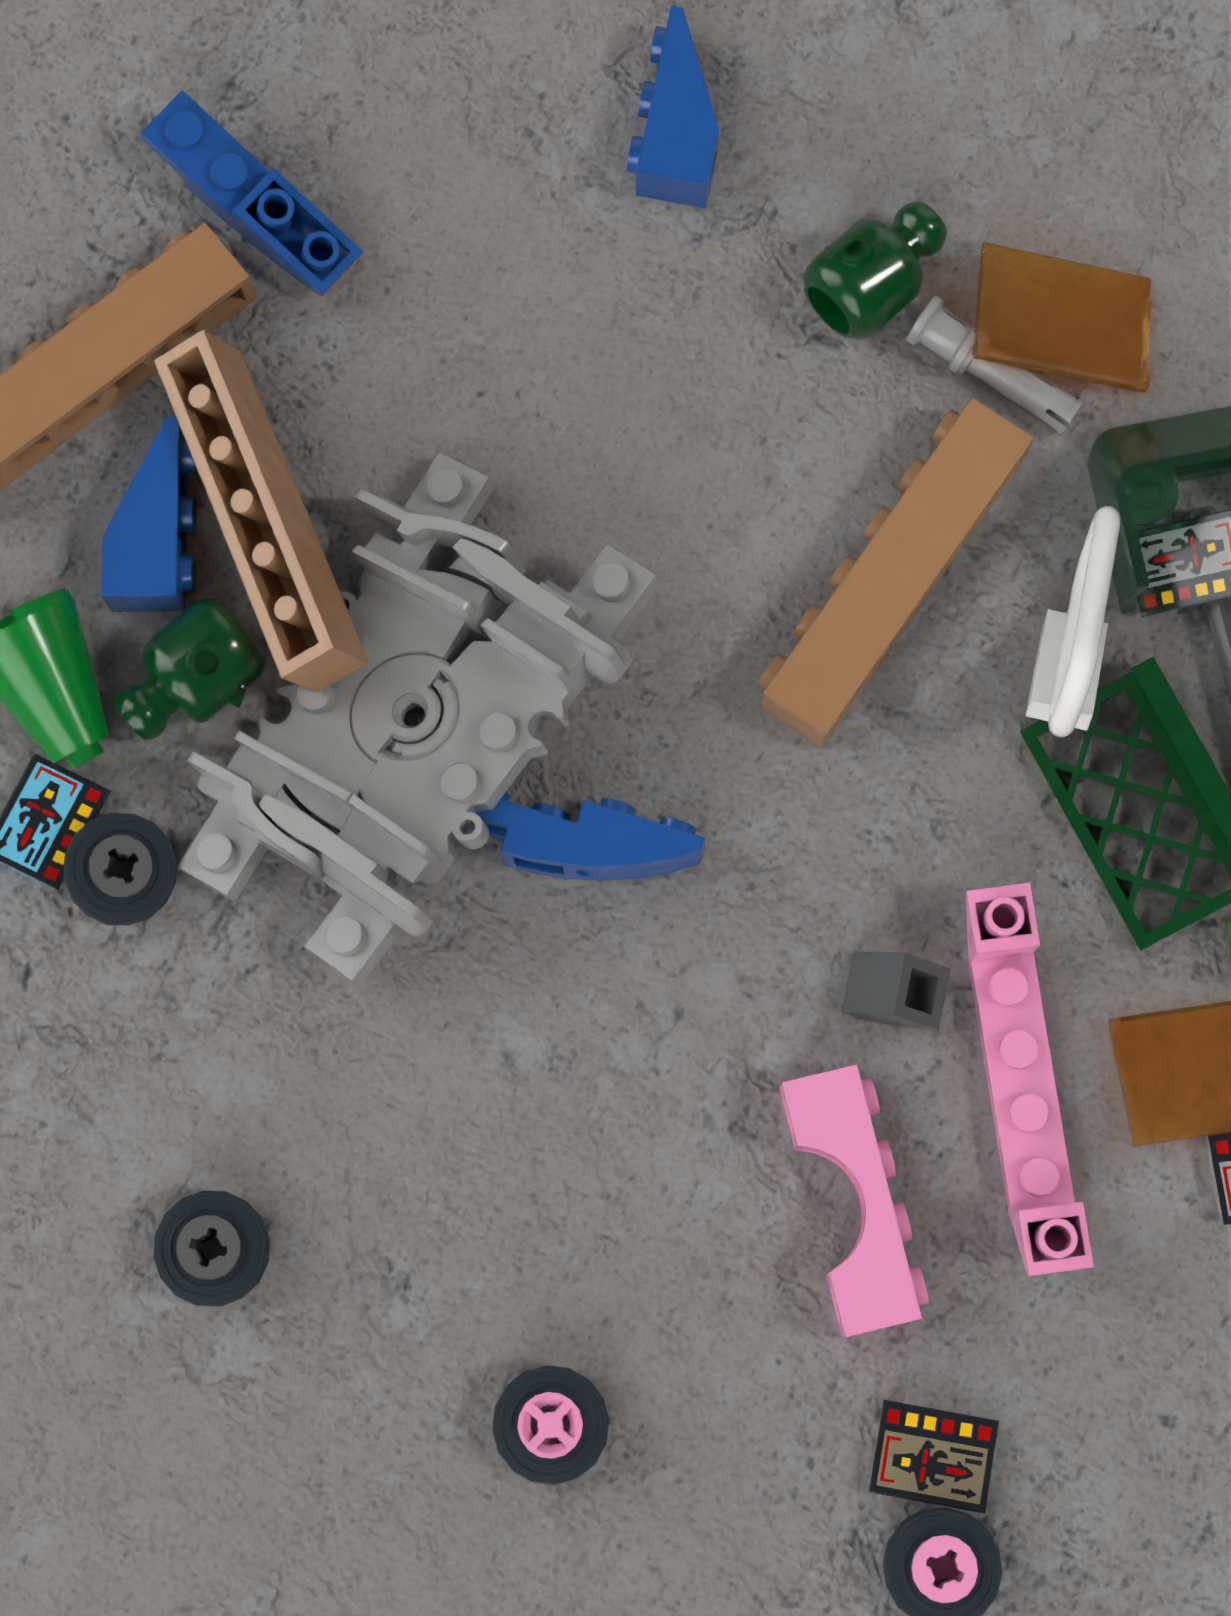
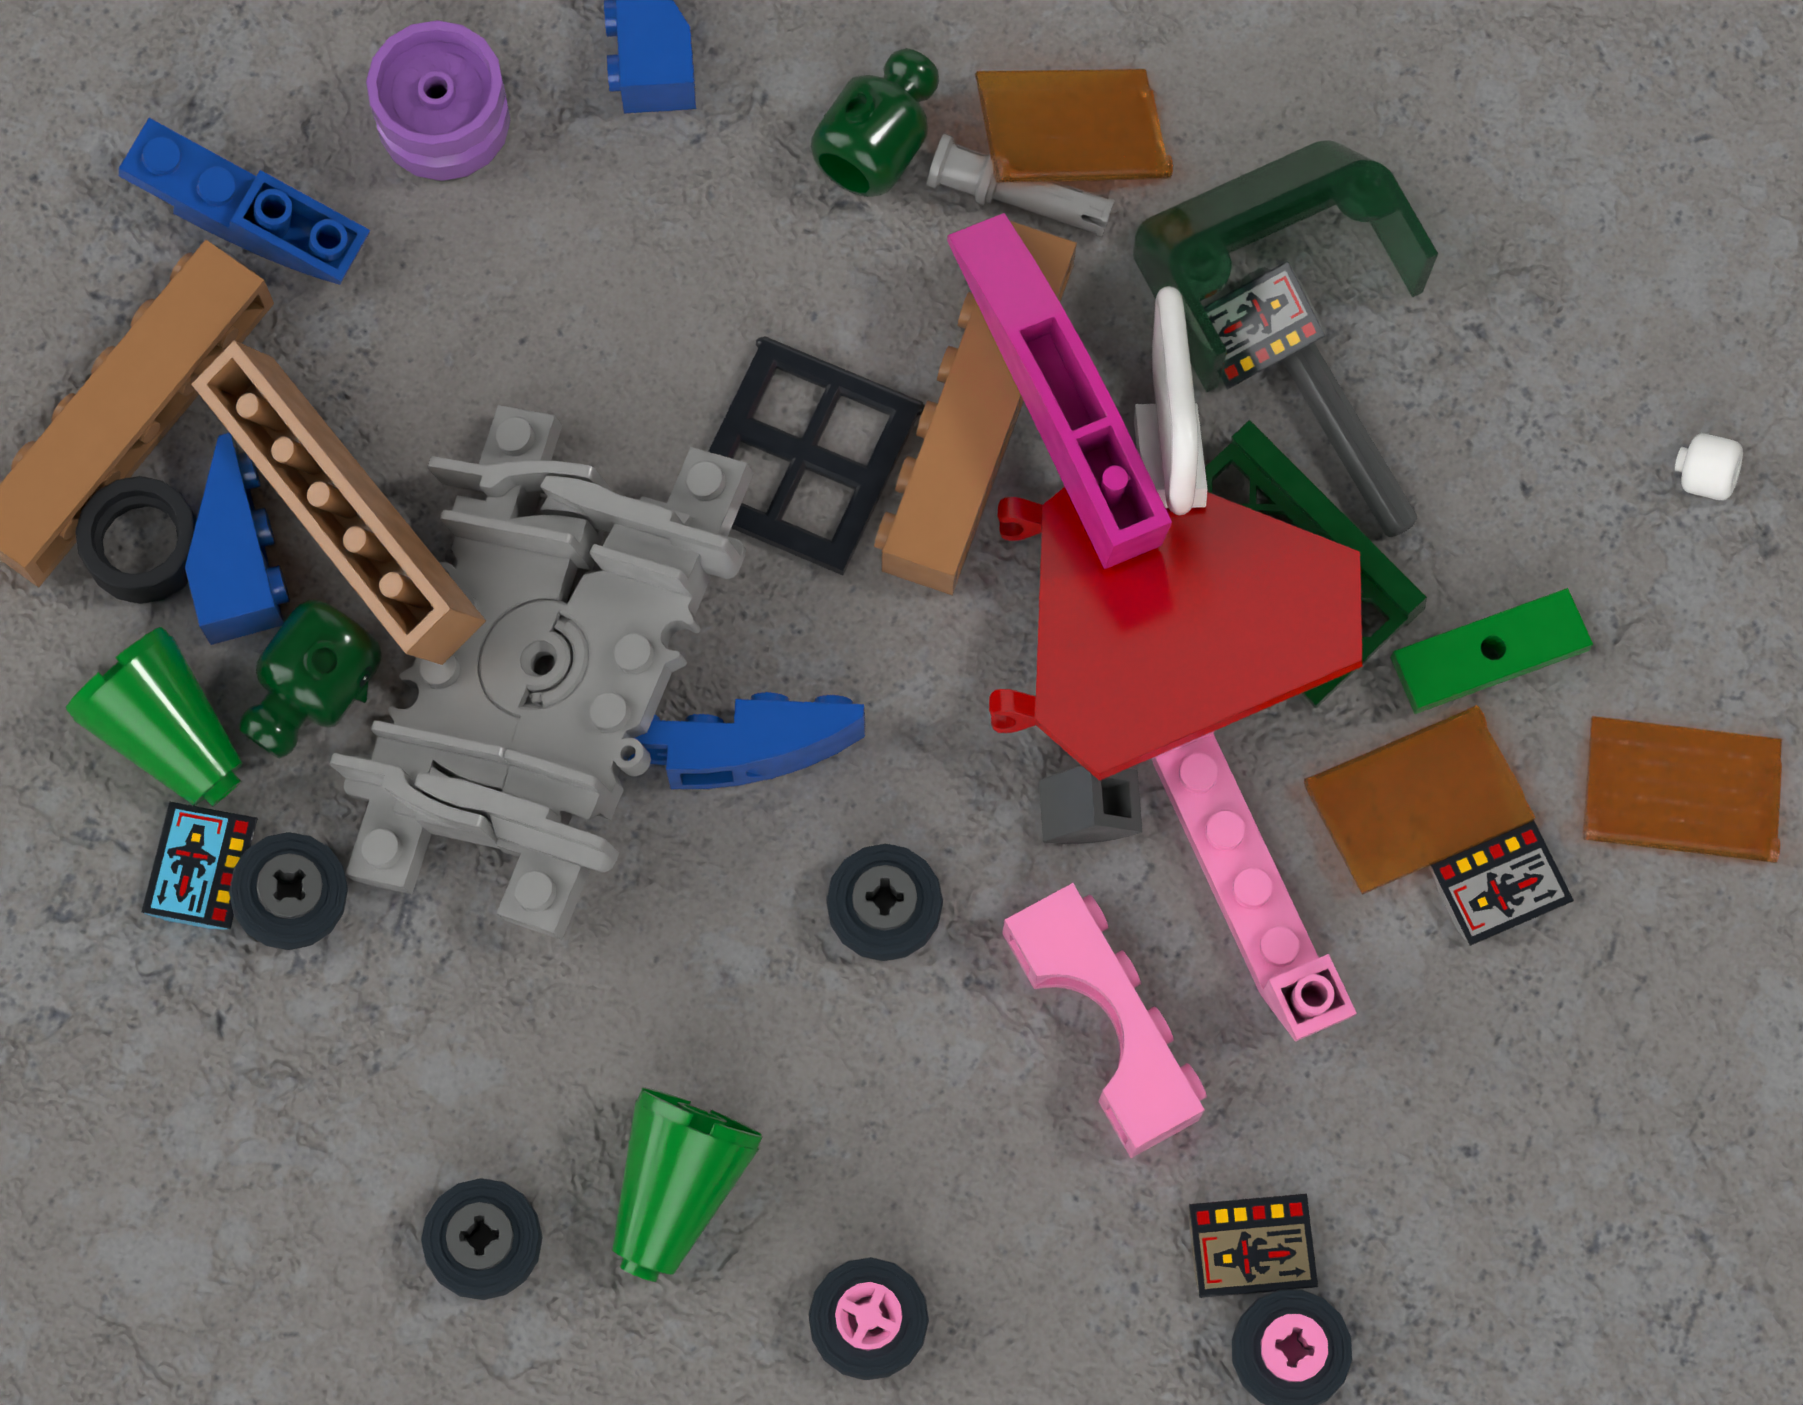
camera: 20 degrees left, 5 degrees down
(38, 463) = (113, 502): none -> black tyre
(406, 1243) = (675, 1179): none -> green cone
(460, 140) = (438, 100): none -> medium lavender wheel
(668, 1052) = (884, 926): none -> black wheel
(718, 572) = (806, 454): none -> black window
(977, 583) = (1062, 393): none -> dark pink slope
(1024, 836) = (1181, 635): none -> red flag

